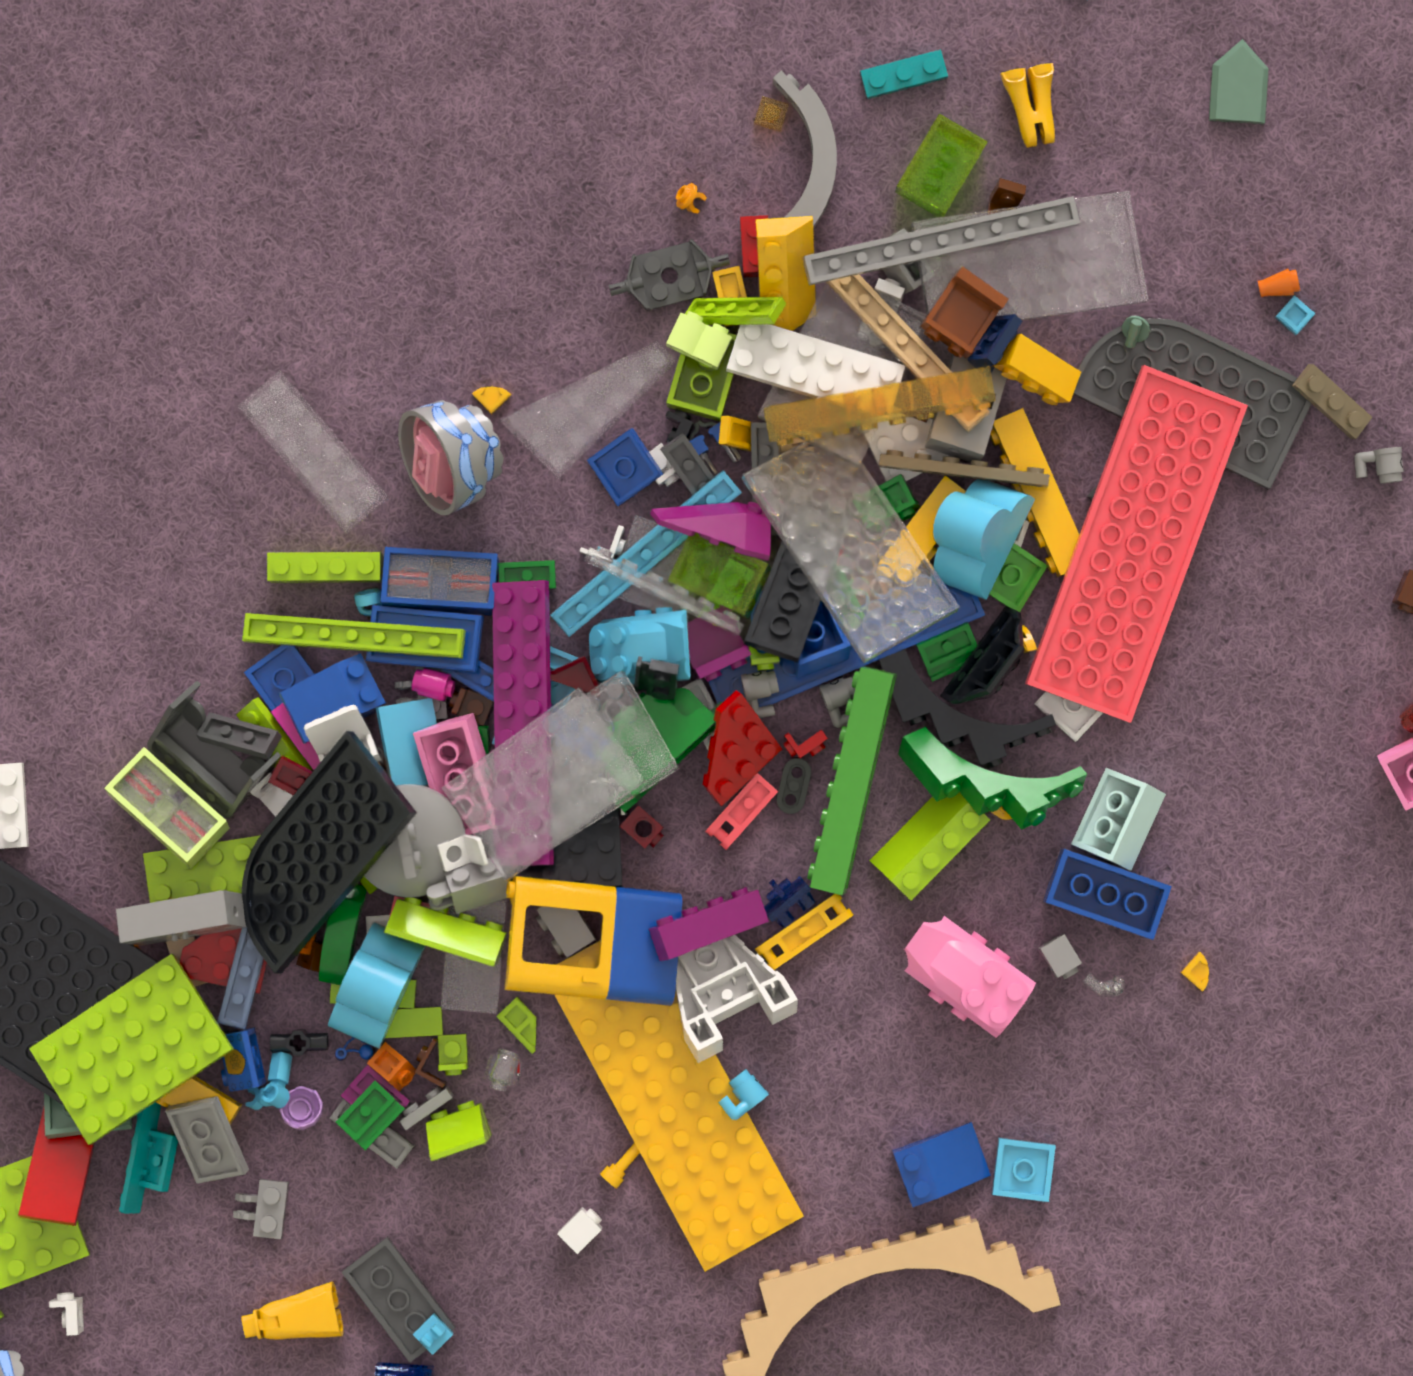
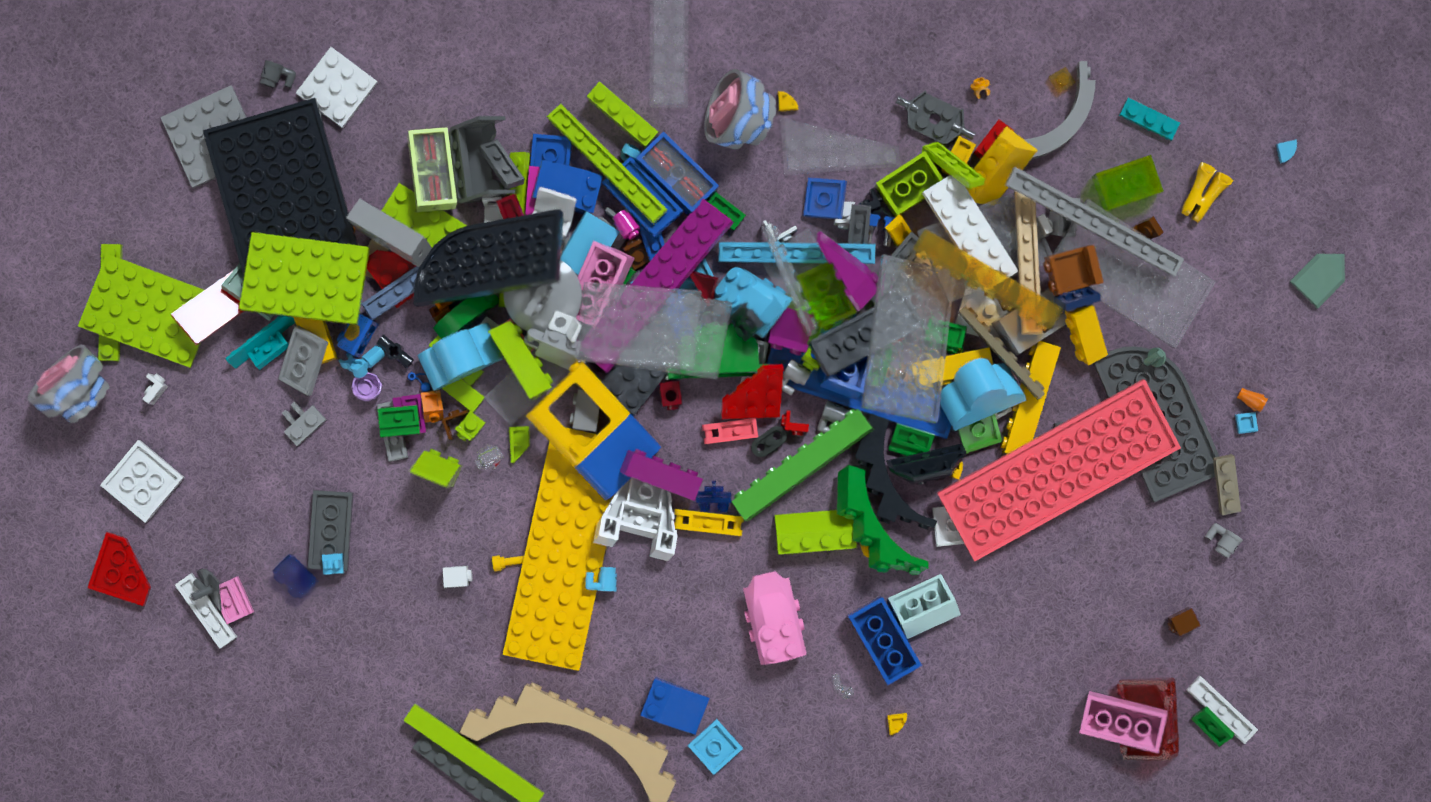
camera: 30 degrees right, 0 degrees up
(298, 1316) = (270, 493): yellow piece -> none
(415, 1113) = (423, 441): light grey plate -> none
(699, 340) = (921, 164): yellowish green brick -> none
(1060, 956) = (831, 652): light grey brick -> none

